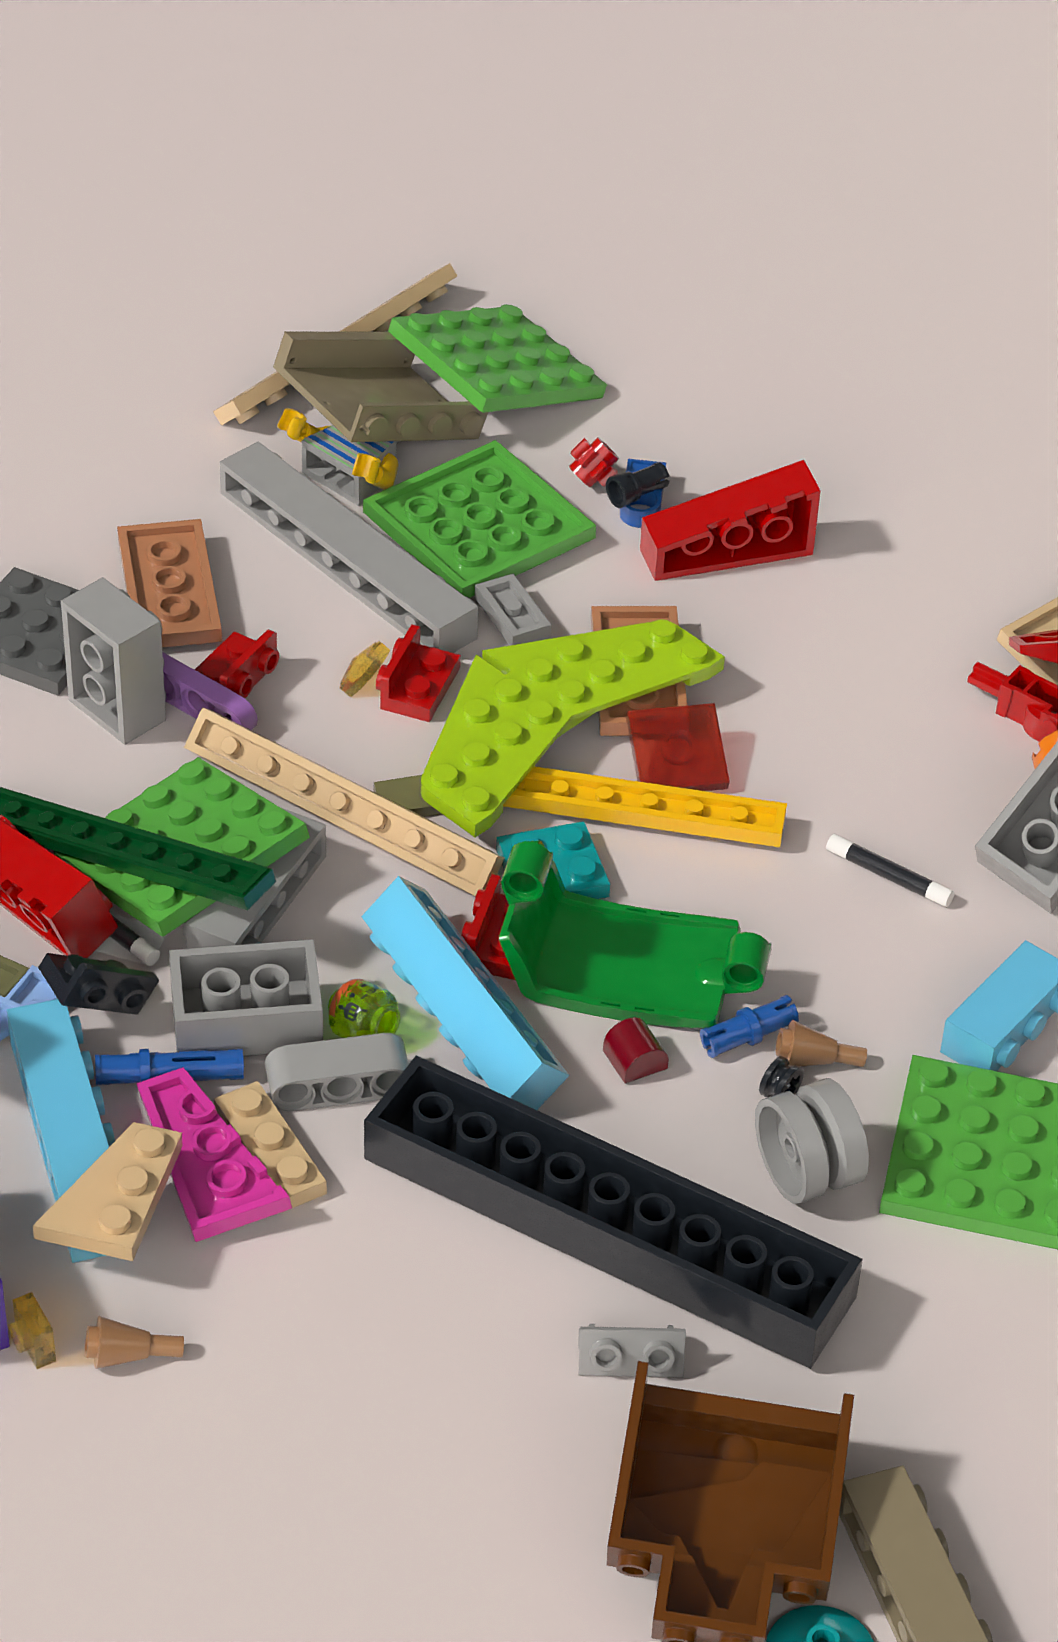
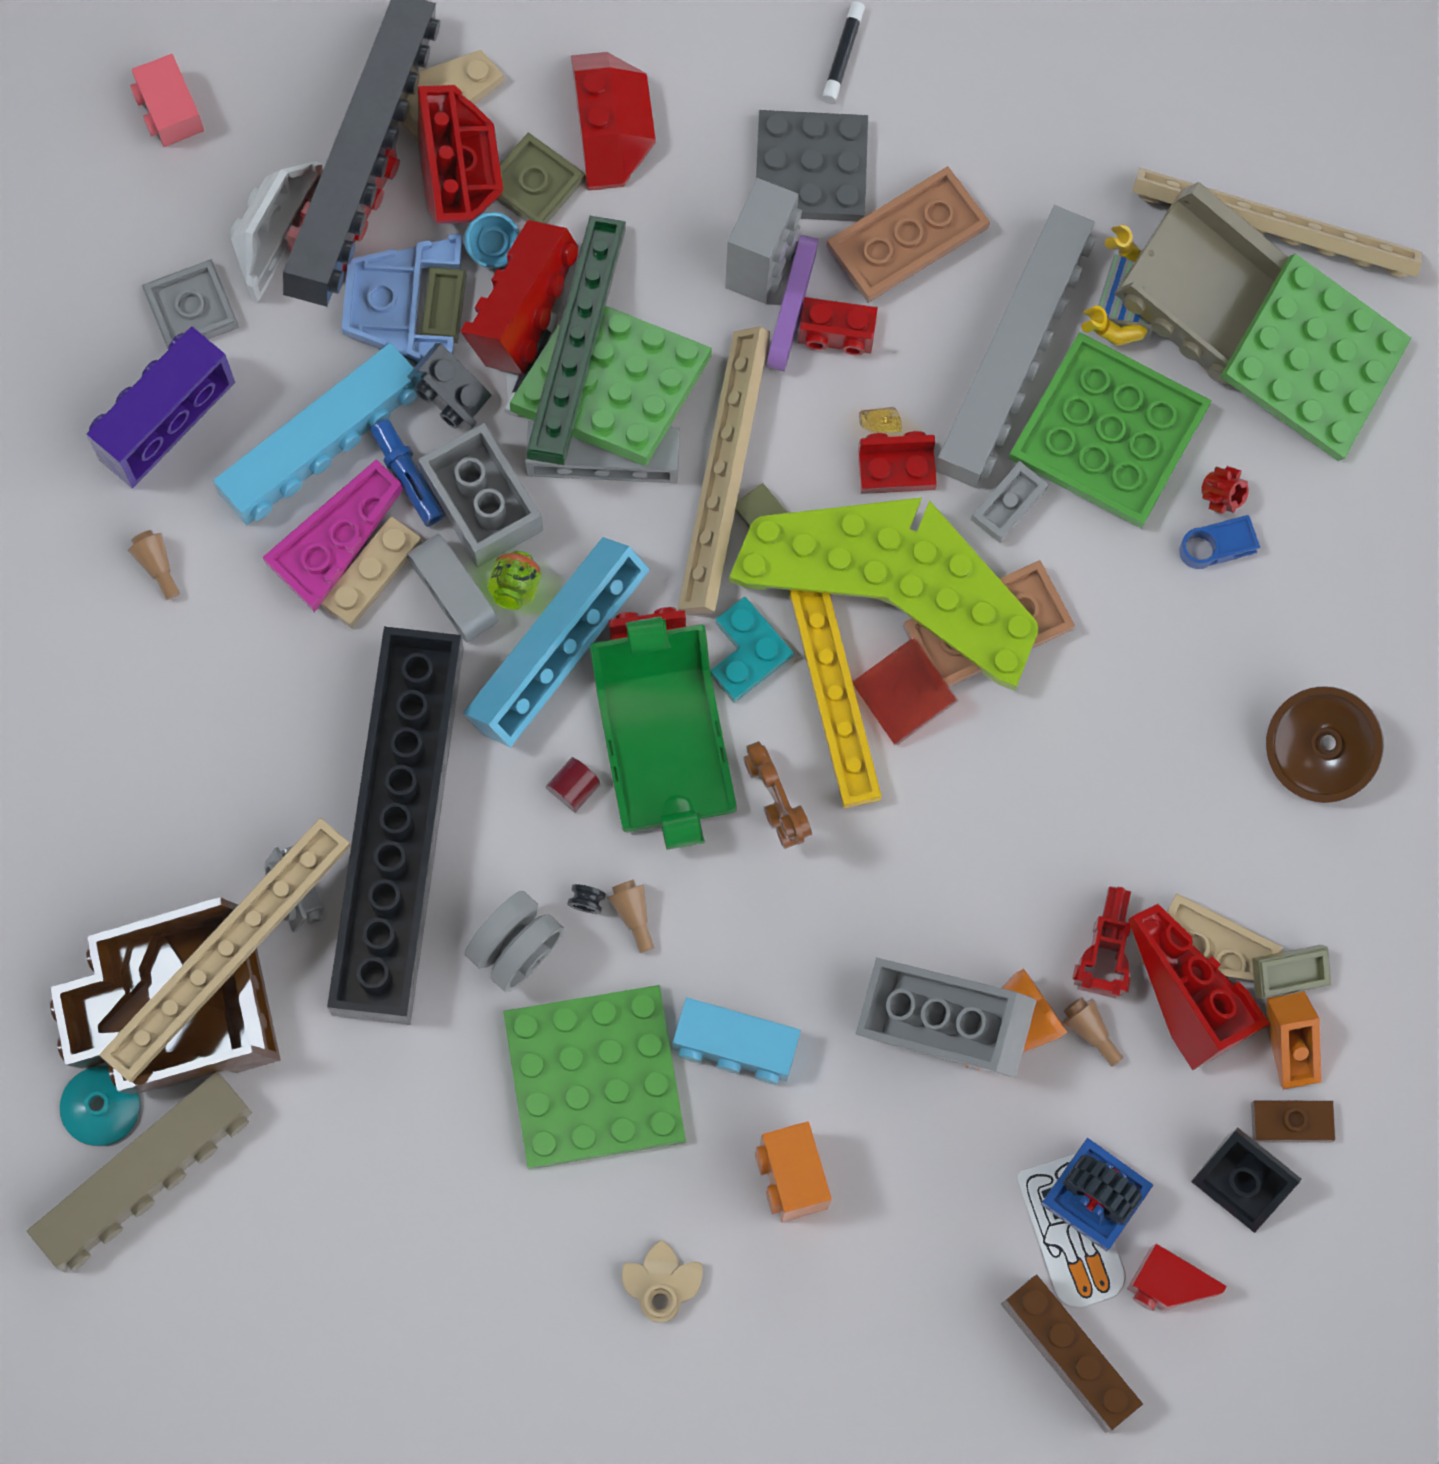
camera: 65 degrees right, 30 degrees up
(32, 1331) = (135, 497): clear yellow plate -> none
(115, 1195) = (251, 495): tan wing -> none
(629, 486) = (1199, 532): black pin -> none
(705, 1403) = (224, 950): none -> tan plate
(735, 526) = (1193, 631): red wedge -> none
(748, 1026) = (633, 855): blue pin -> none
(803, 832) = (790, 822): none -> dark orange plant
(890, 870) = (858, 901): black bar -> none
(911, 464) = (1298, 750): none -> reddish brown dish

